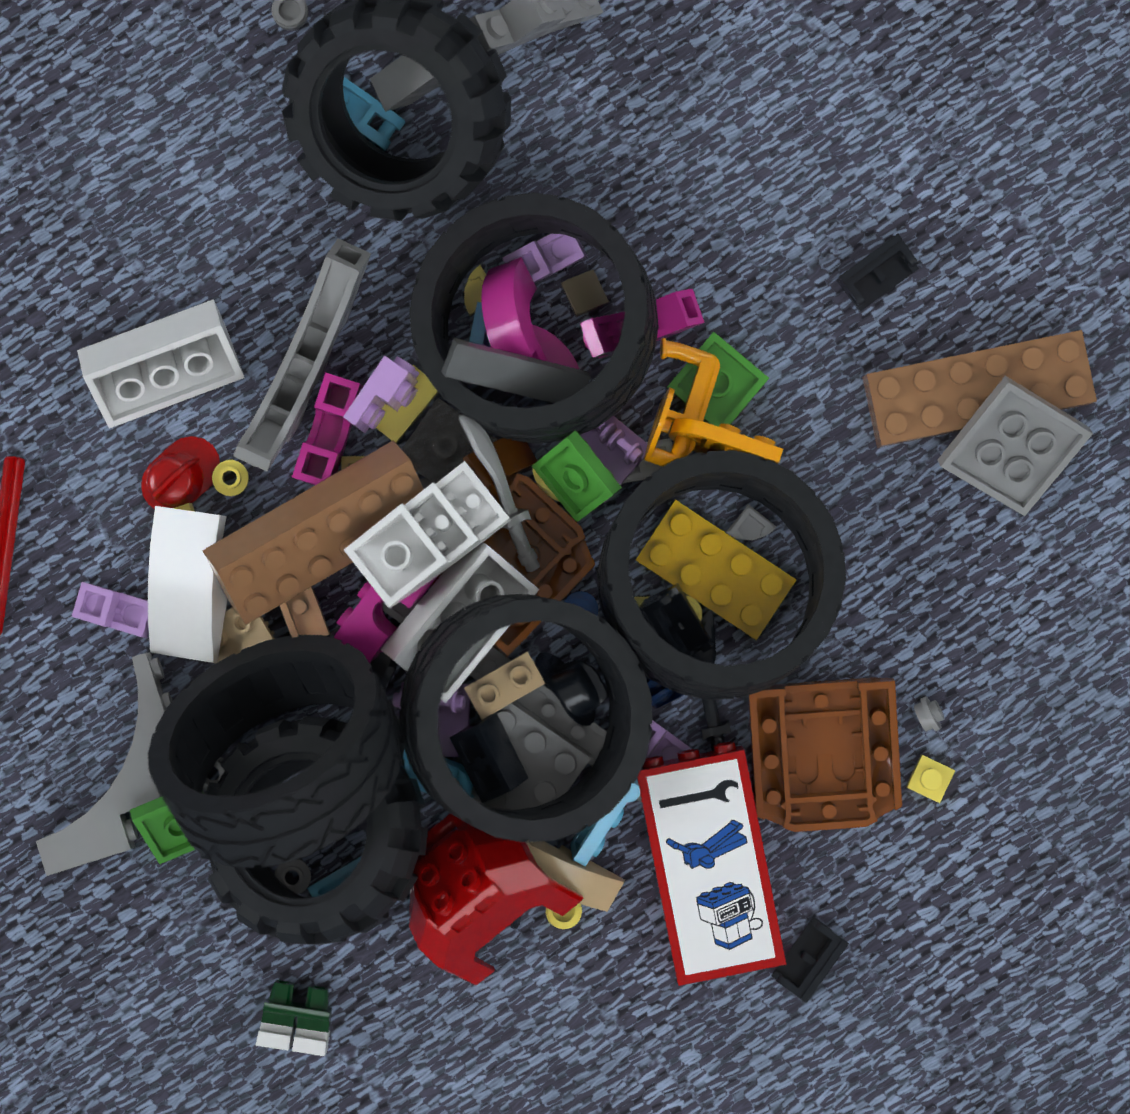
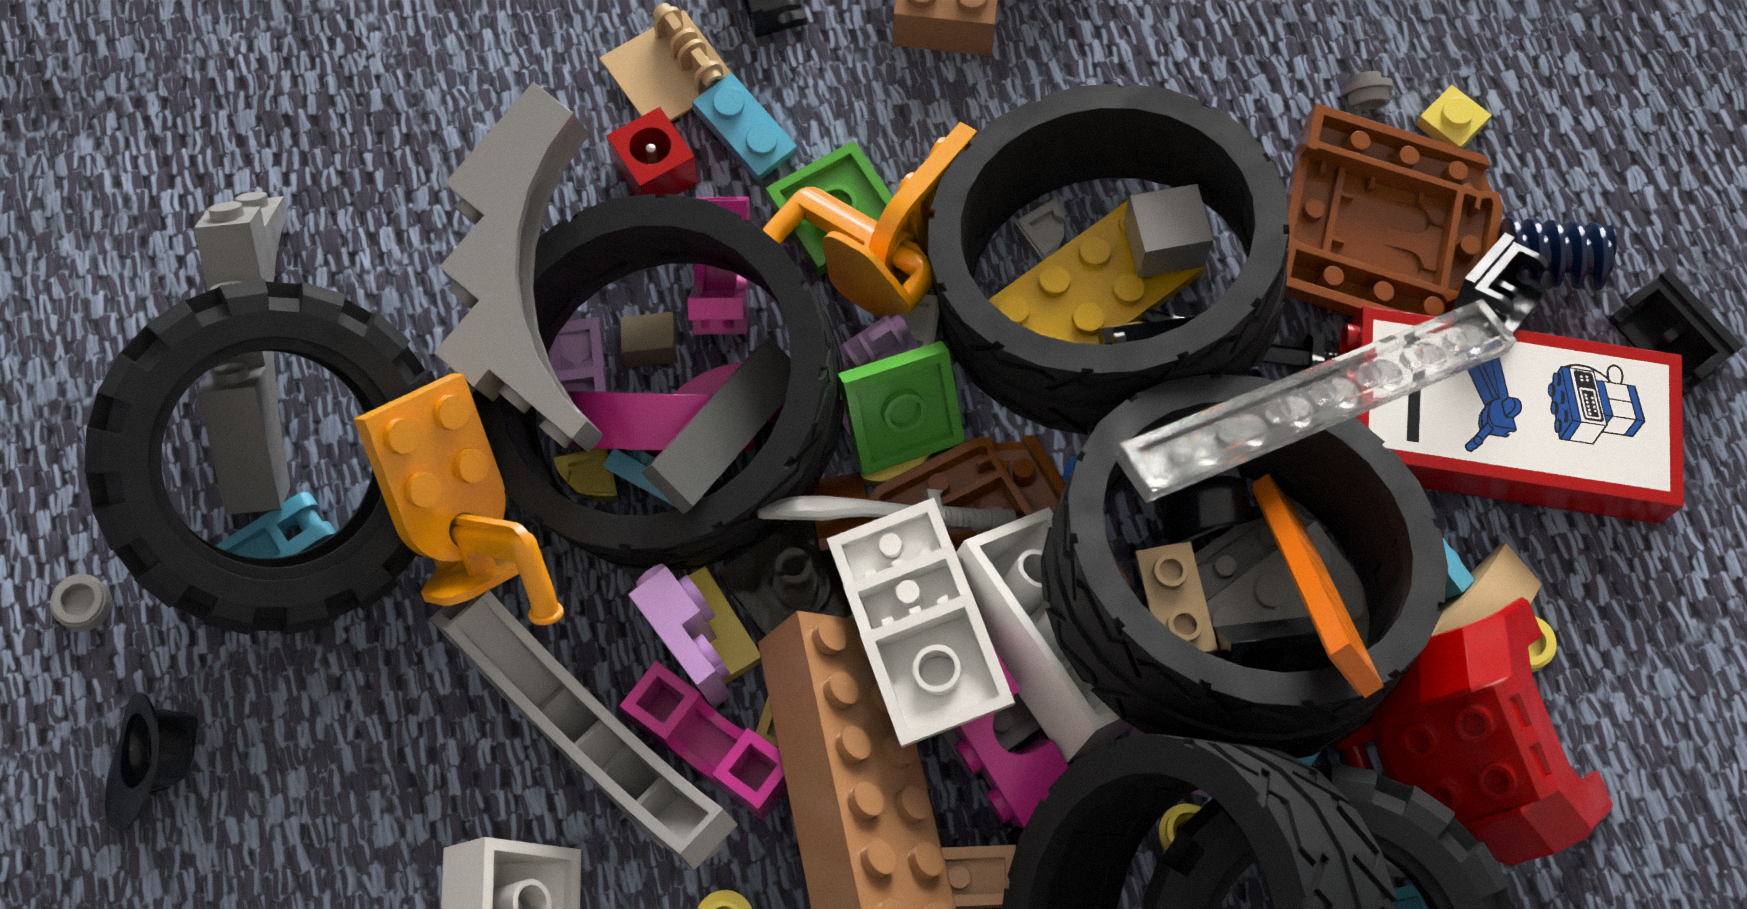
camera: 75 degrees left, 20 degrees down
(205, 98) = (149, 758): none -> black piece
(418, 207) = (451, 497): none -> light orange plate
(520, 762) = (1316, 588): none -> orange tile
(555, 194) = (505, 196): none -> light grey arch
(642, 735) = (1312, 400): none -> clear plate
(709, 248) = (652, 156): none -> red piece
(758, 299) = (744, 127): none -> medium azure plate
(761, 608) = (1167, 230): none -> light grey piece
(785, 836) = (1501, 283): none -> black hinge
(787, 231) = (665, 64): none -> tan hinge
(841, 869) = (1567, 249): none -> dark blue piece

